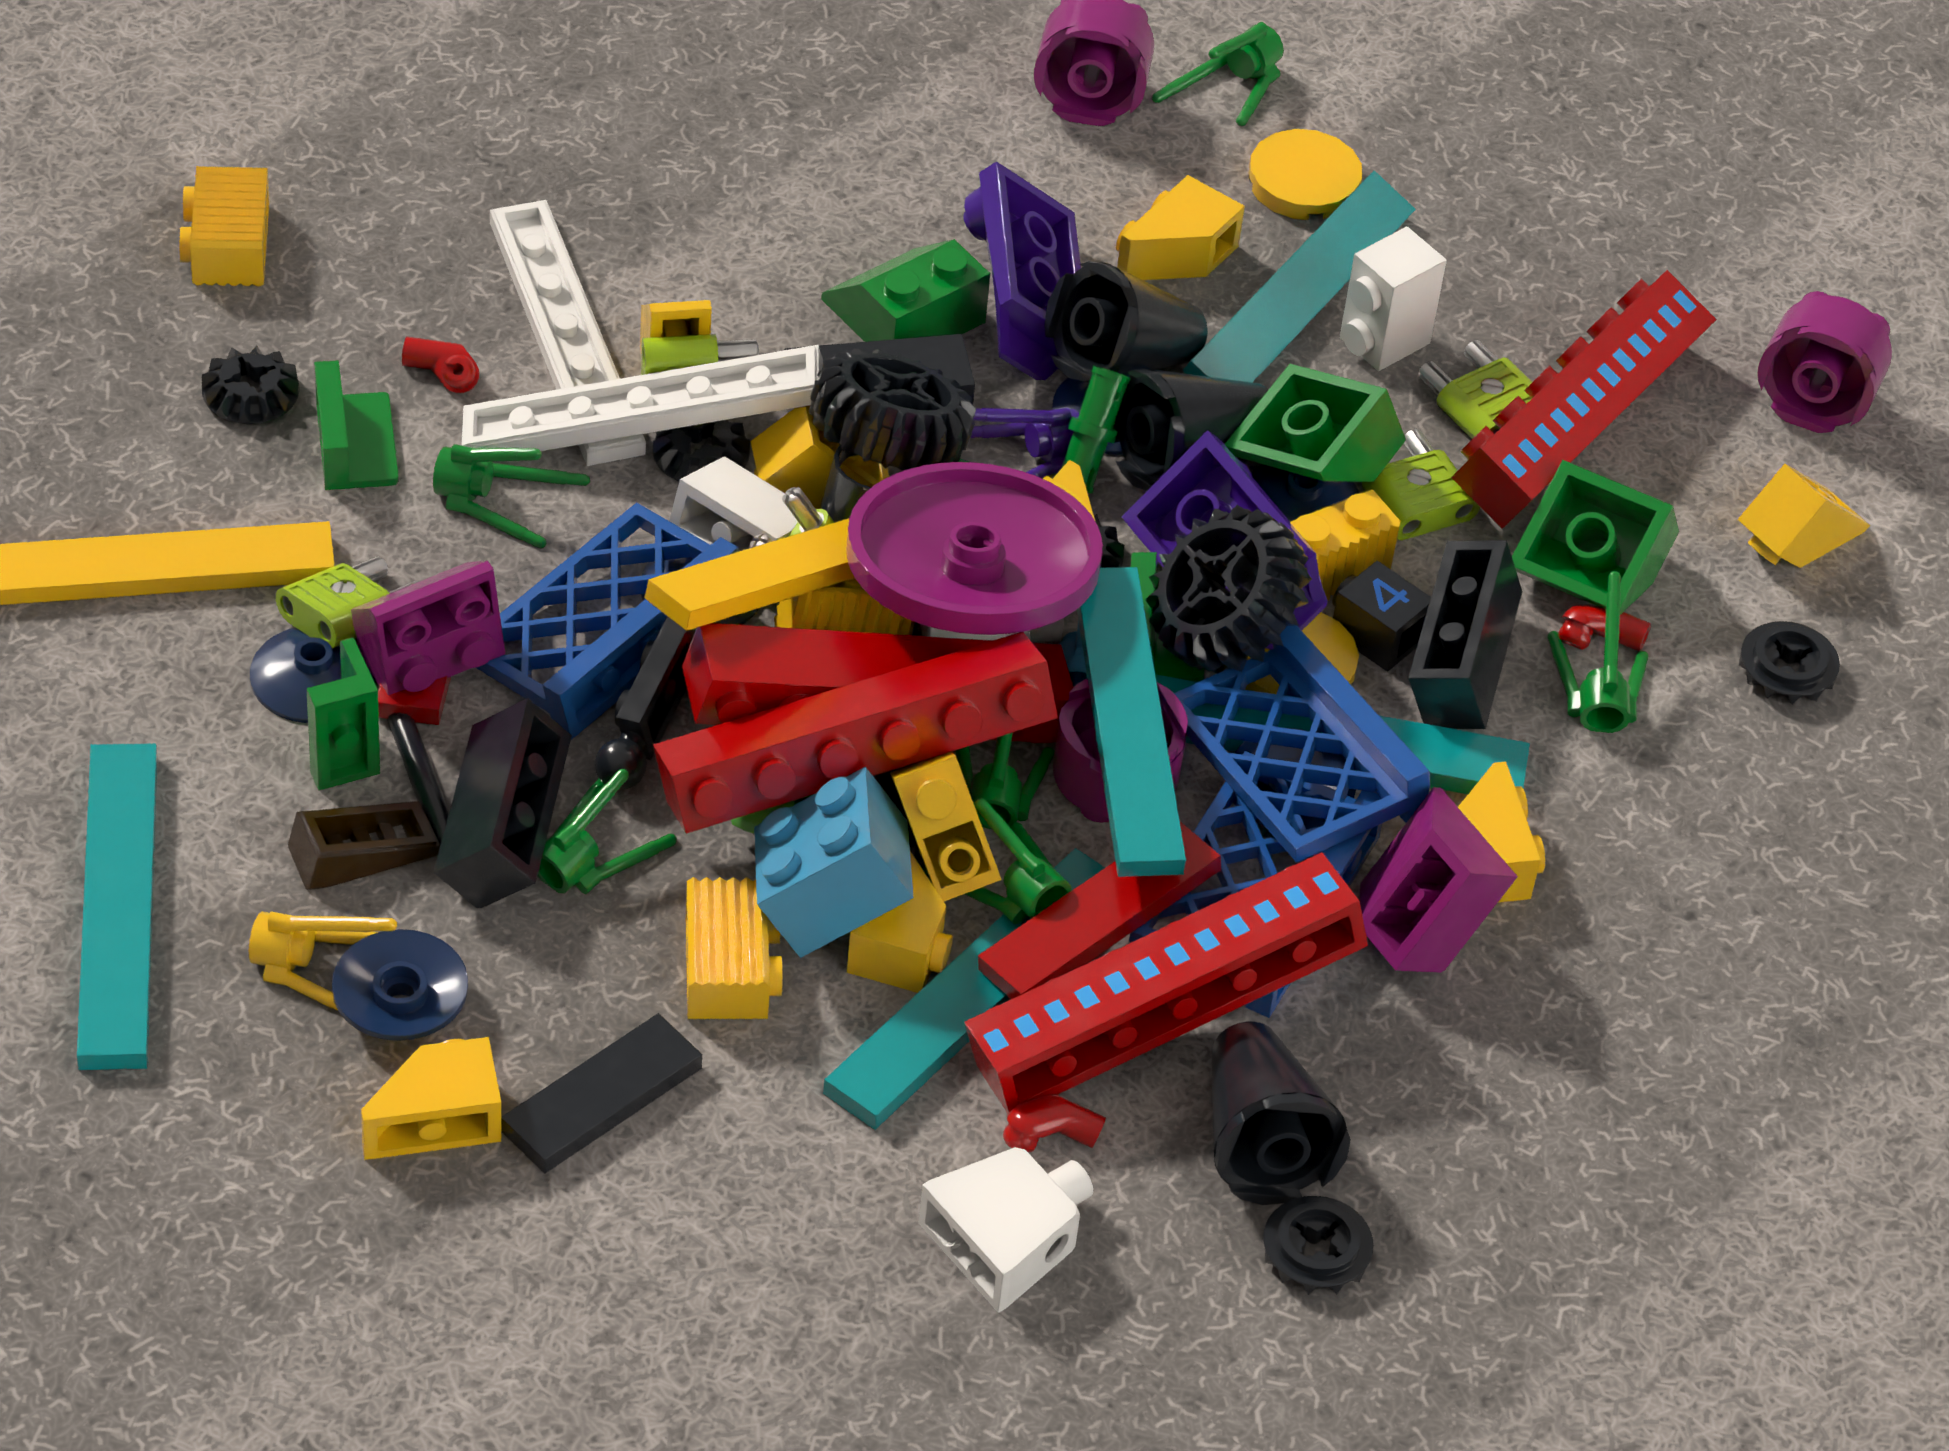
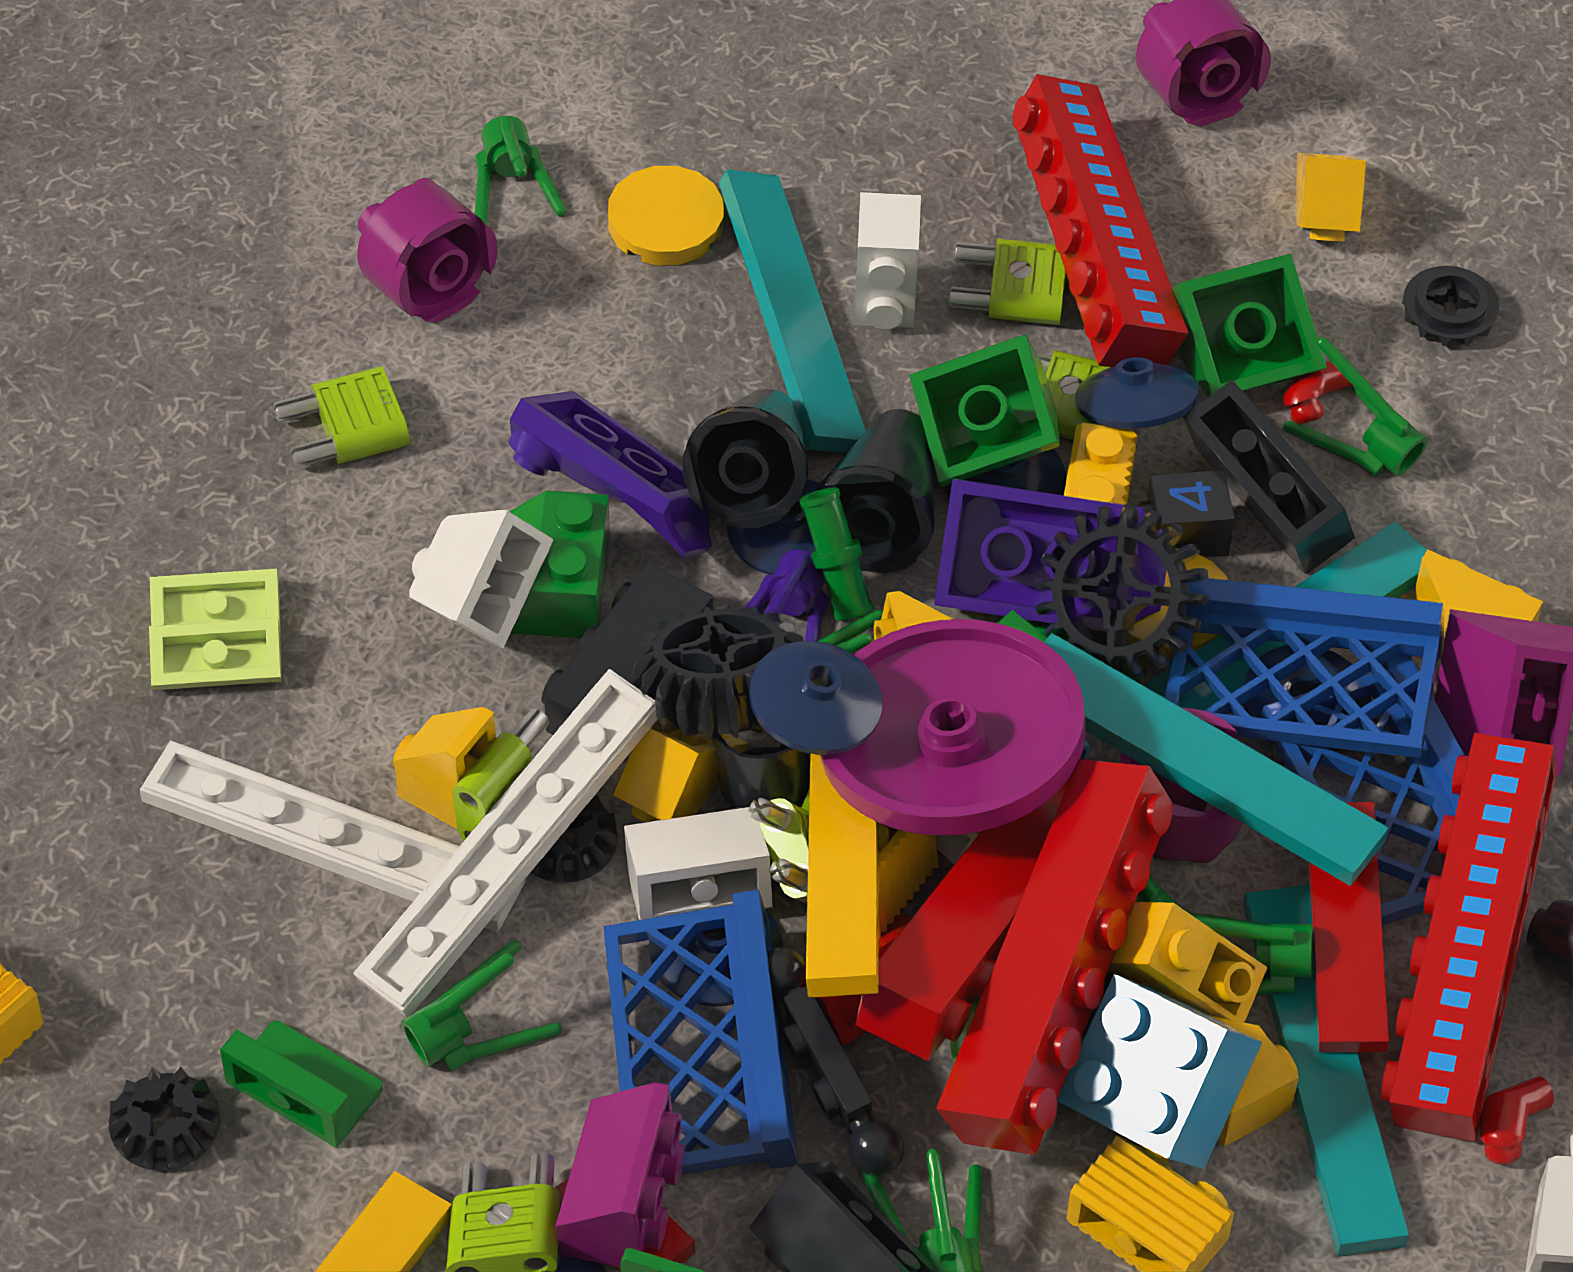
camera: 45 degrees left, 5 degrees up
(447, 360) = (286, 948): red arm -> none
(664, 167) = (215, 629): none -> yellowish green slope
(842, 252) = (480, 571): none -> white torso
(899, 470) = (811, 716): none -> dark blue dish
(923, 123) = (356, 414): none -> lime piece
(1181, 234) = (664, 339): yellow slope -> none
(1442, 506) = (1136, 394): none -> dark blue dish

